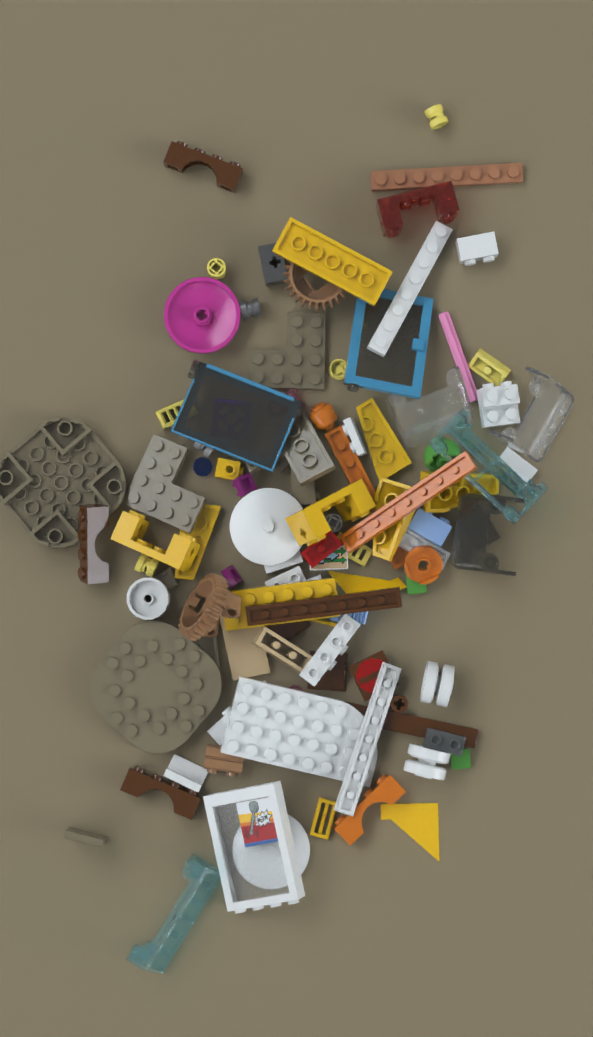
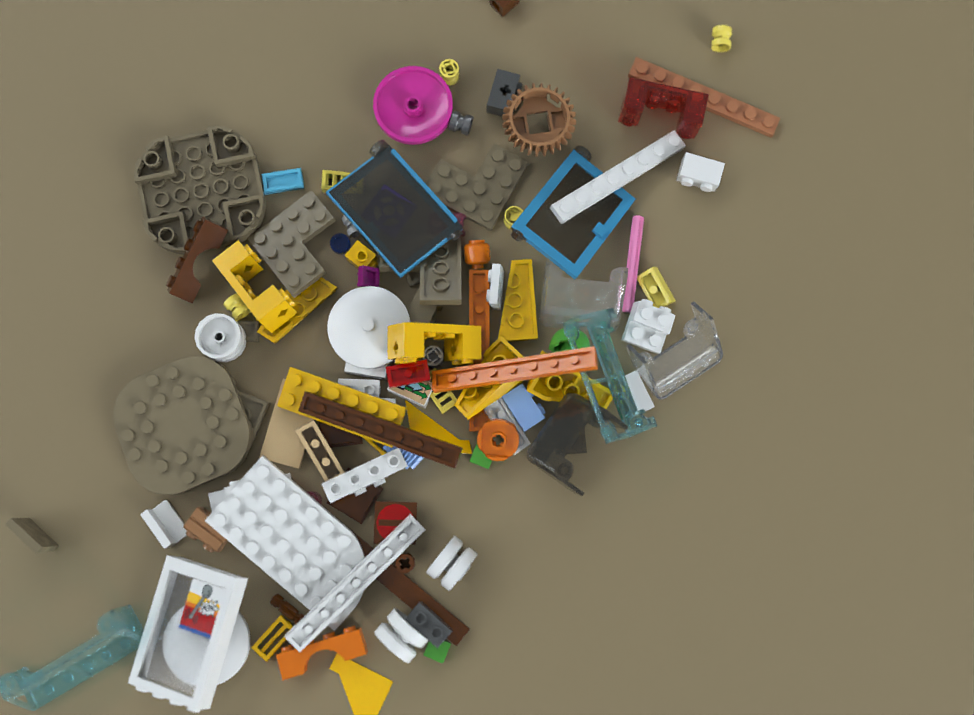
camera: 20 degrees right, 5 degrees down
(124, 438) = (282, 181): none -> medium azure tile
(138, 782) = (147, 548): reddish brown arch -> none
(218, 603) = (269, 375): medium nougat piece -> none
(231, 576) = (309, 358): magenta tile -> none
(322, 790) = (286, 608): none -> reddish brown axle
(332, 261) = (558, 110): yellow plate -> none

